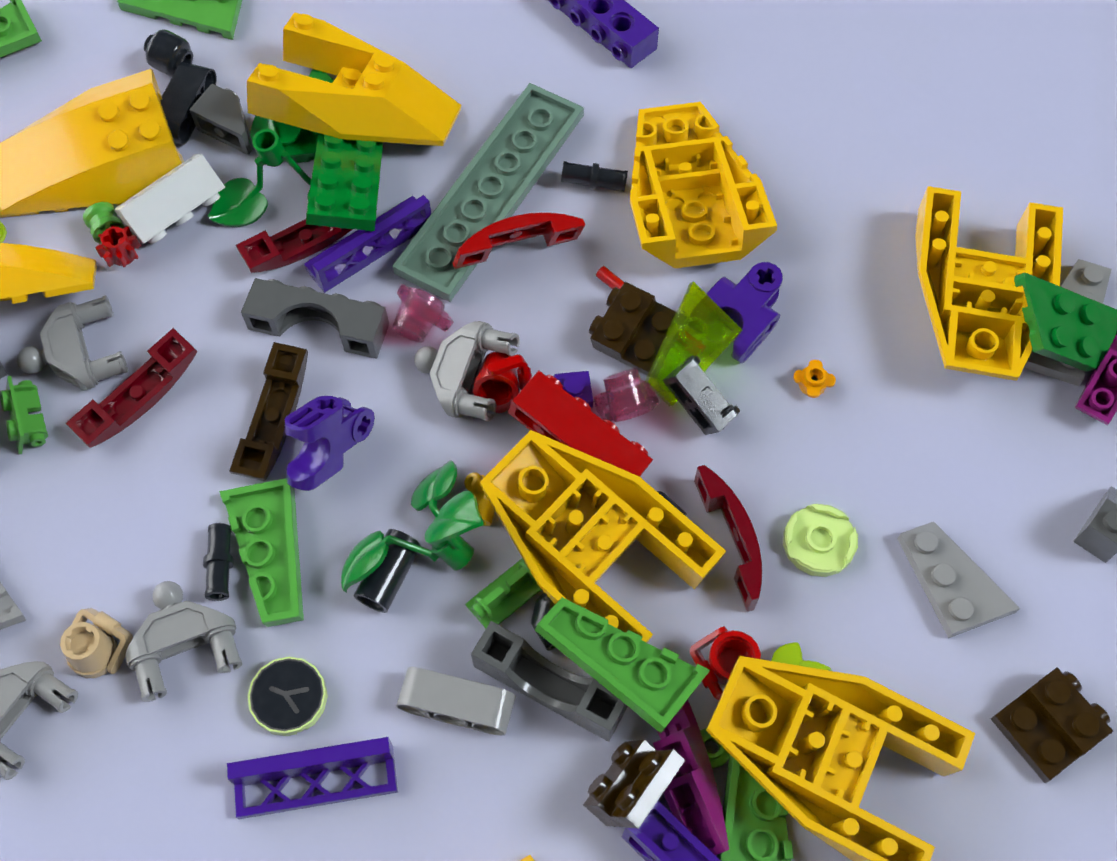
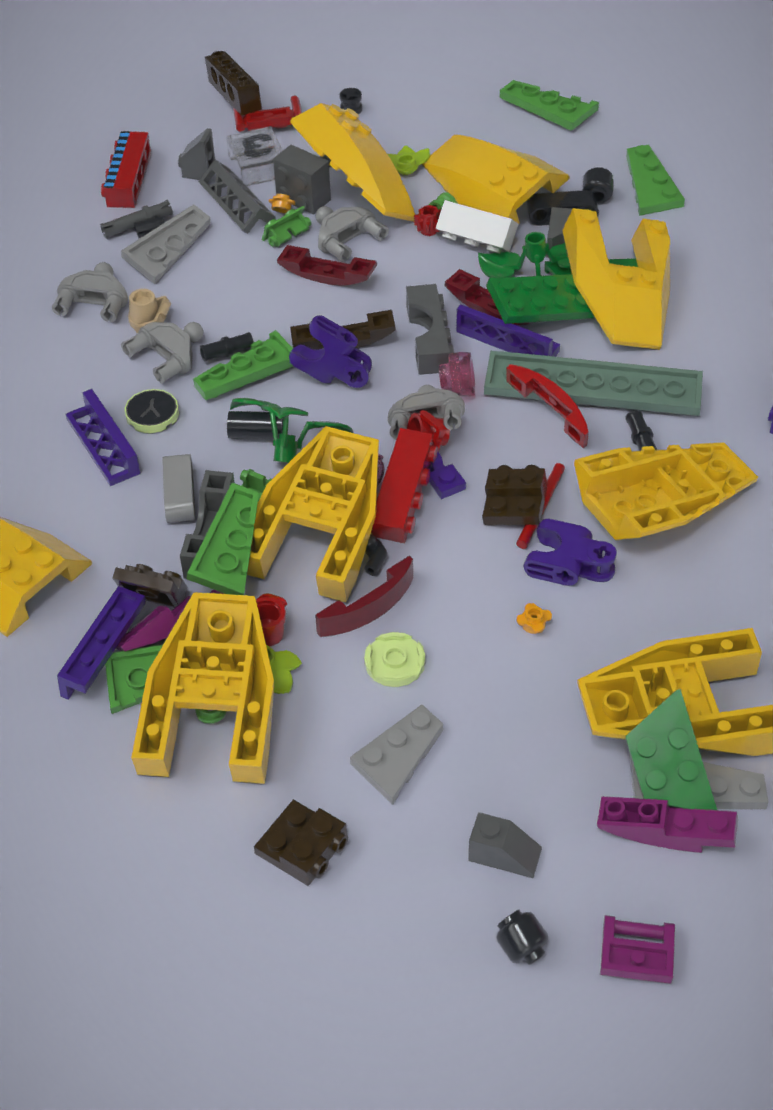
camera: 70 degrees right, 15 degrees down
(626, 396) = (452, 504): clear pink piece -> none
(696, 329) = (515, 527): clear neon green wing -> none
(700, 396) = (474, 544): hinge -> none

